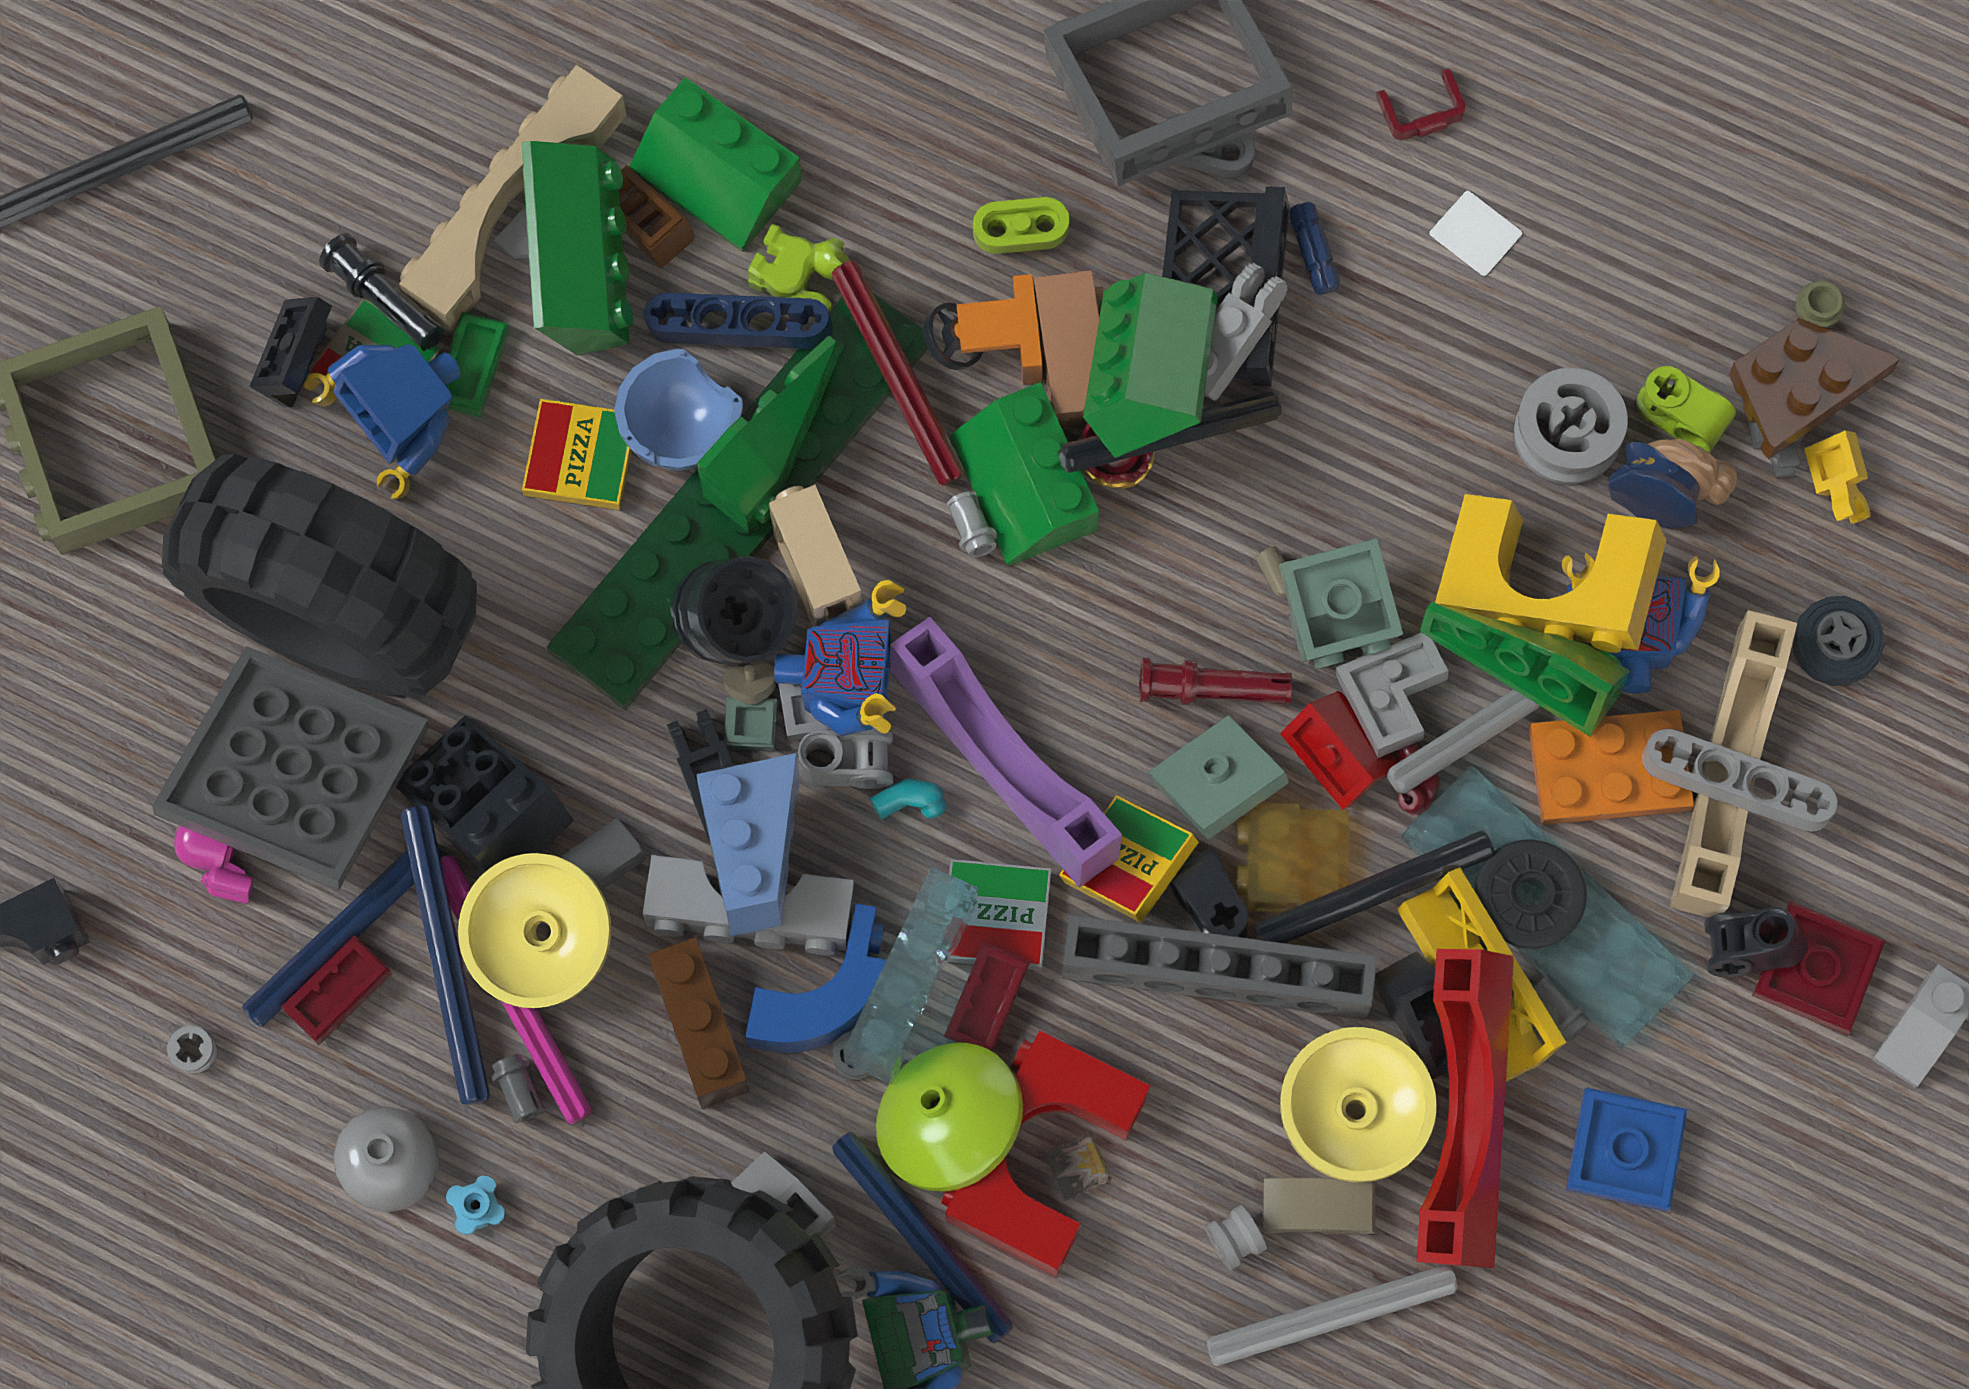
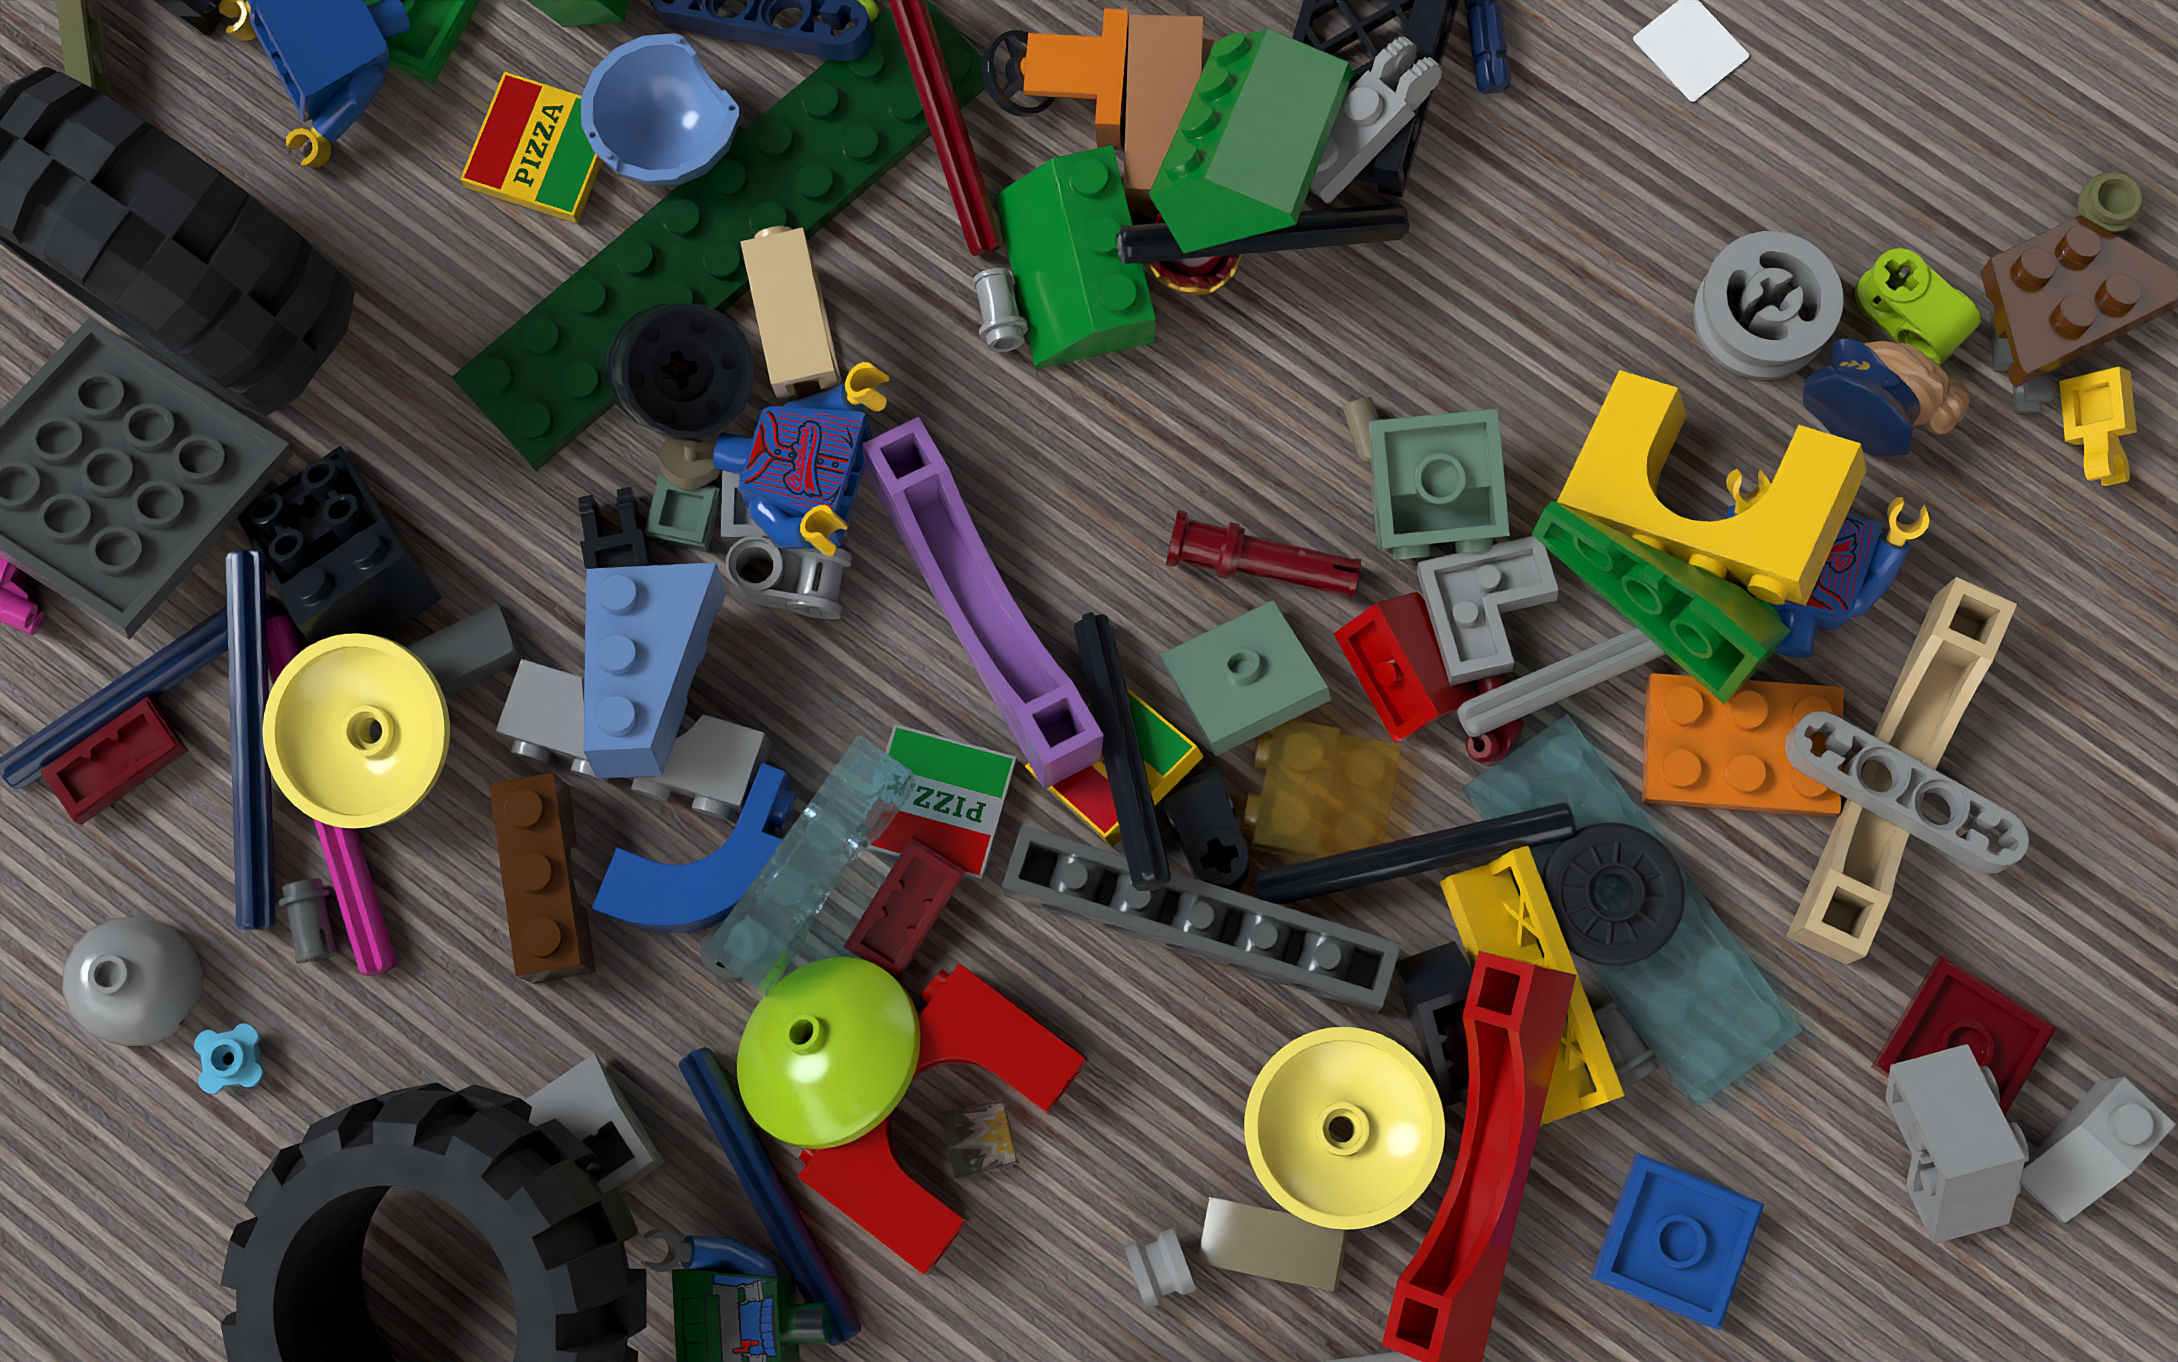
camera: 15 degrees right, 5 degrees up
(756, 456) = (747, 180): green wedge -> none
(910, 793) = (863, 633): teal arm -> none
(1136, 848) = (1122, 754): none -> black axle
(1743, 942) = (1873, 1001): black piece -> none
(1824, 1035) = (1960, 1143): none -> light grey brick
(1847, 625) = (2084, 622): black wheel -> none

